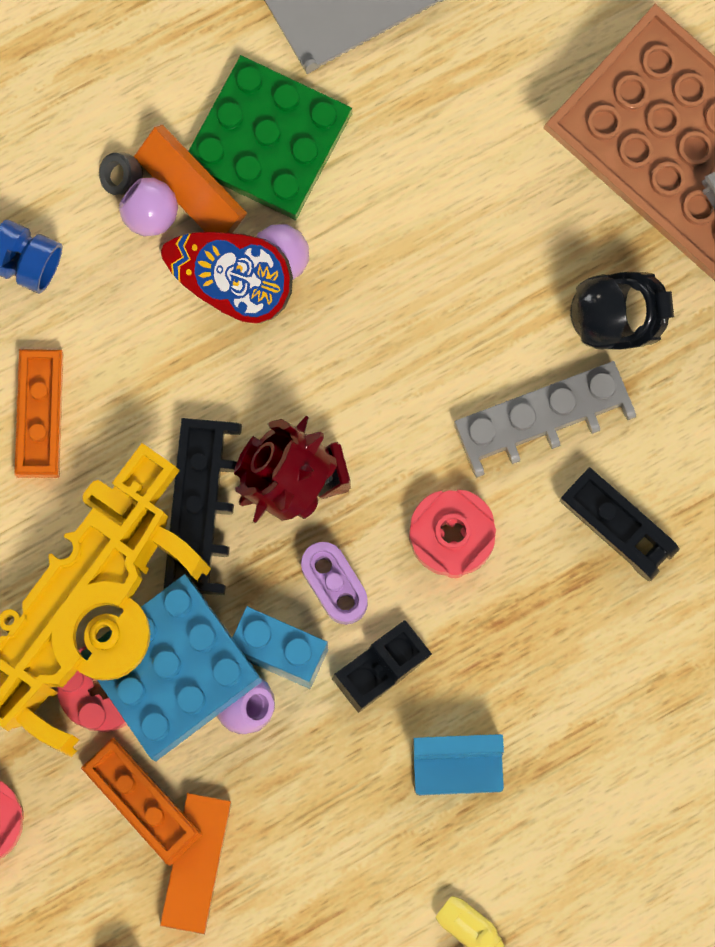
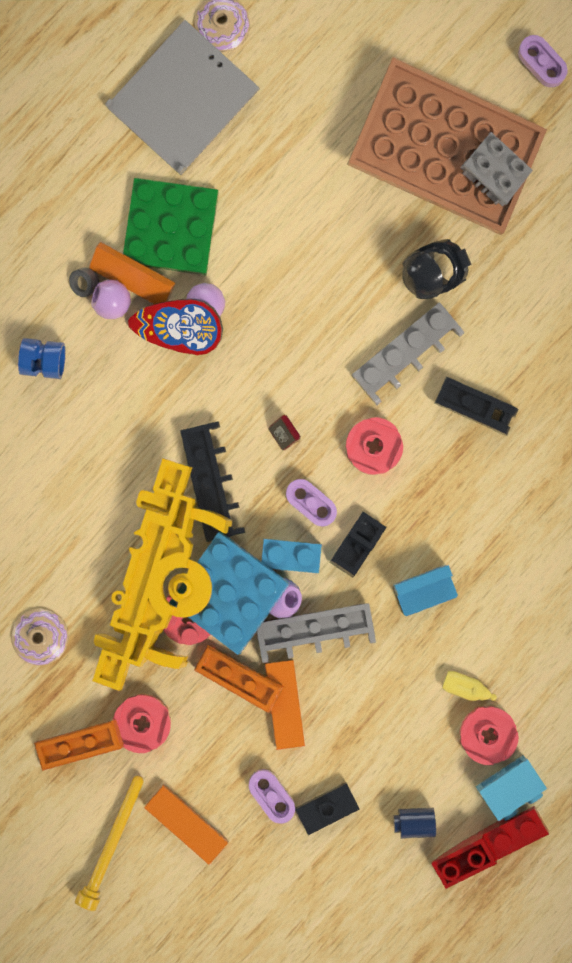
camera: 20 degrees left, 10 degrees up
(39, 413) = (88, 455): orange tile -> none
(277, 766) = (315, 628): none -> light grey hinge
(284, 471) = (257, 444): dark red brick -> none

